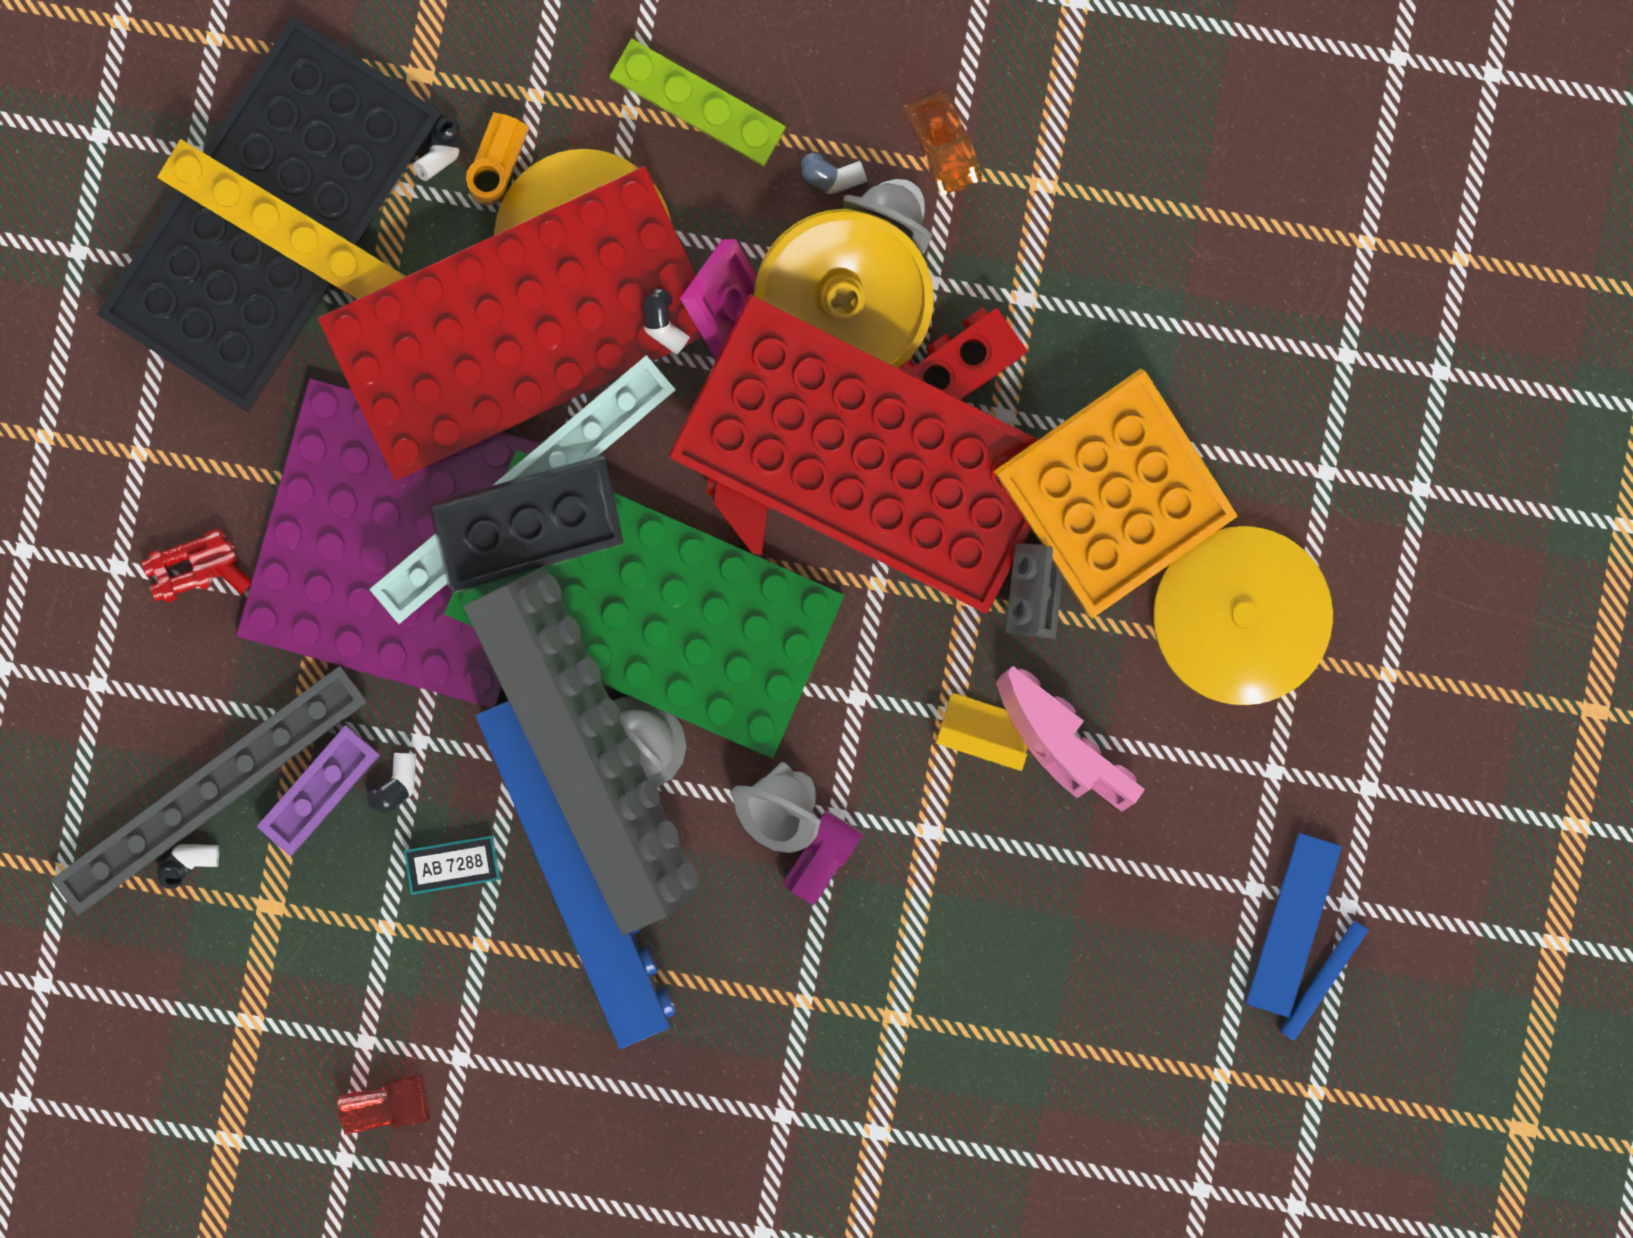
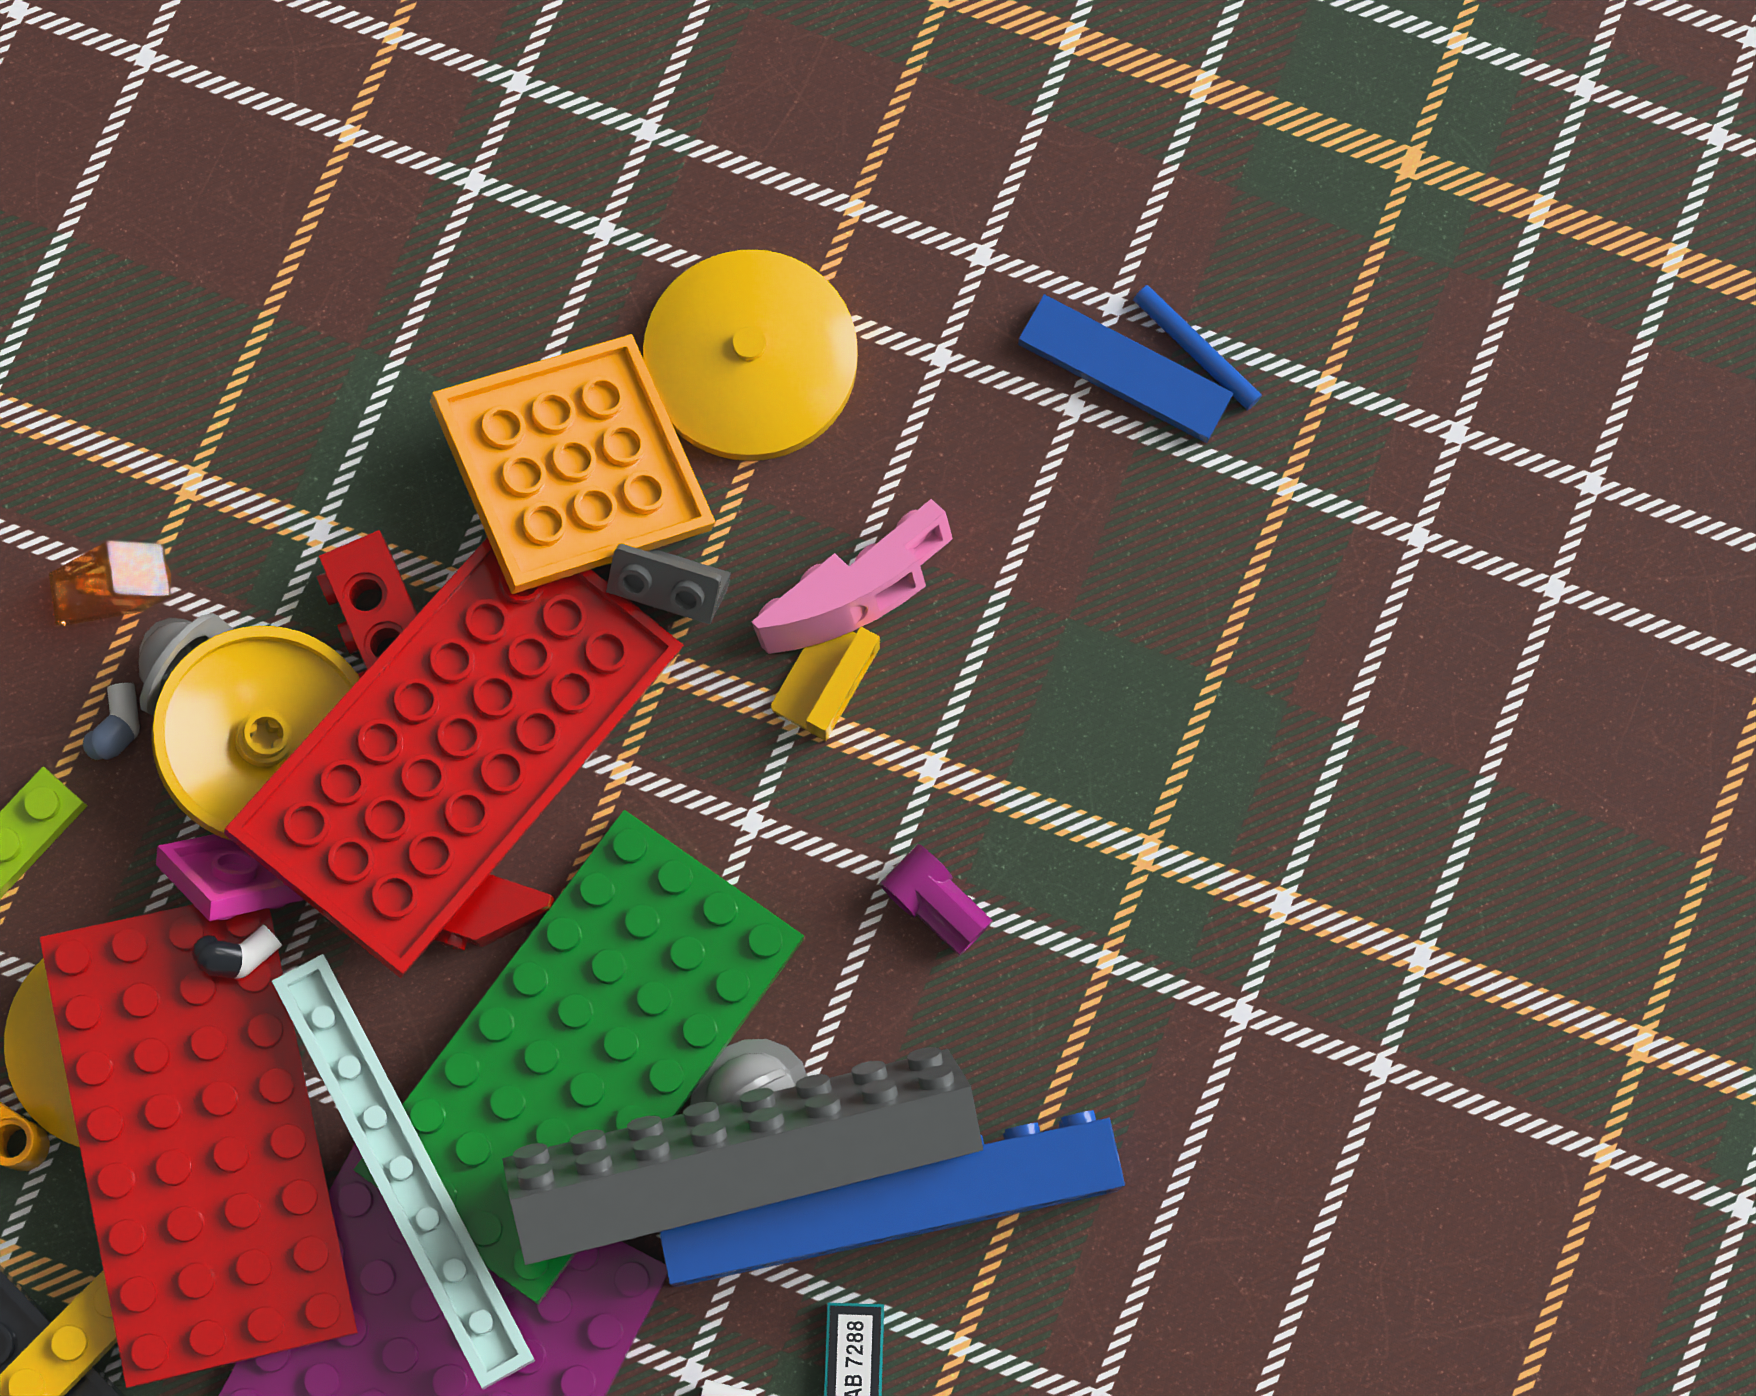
camera: 75 degrees left, 10 degrees down
(526, 523) = (444, 1172): black tile -> none
(779, 809) = (868, 939): light grey helmet -> none

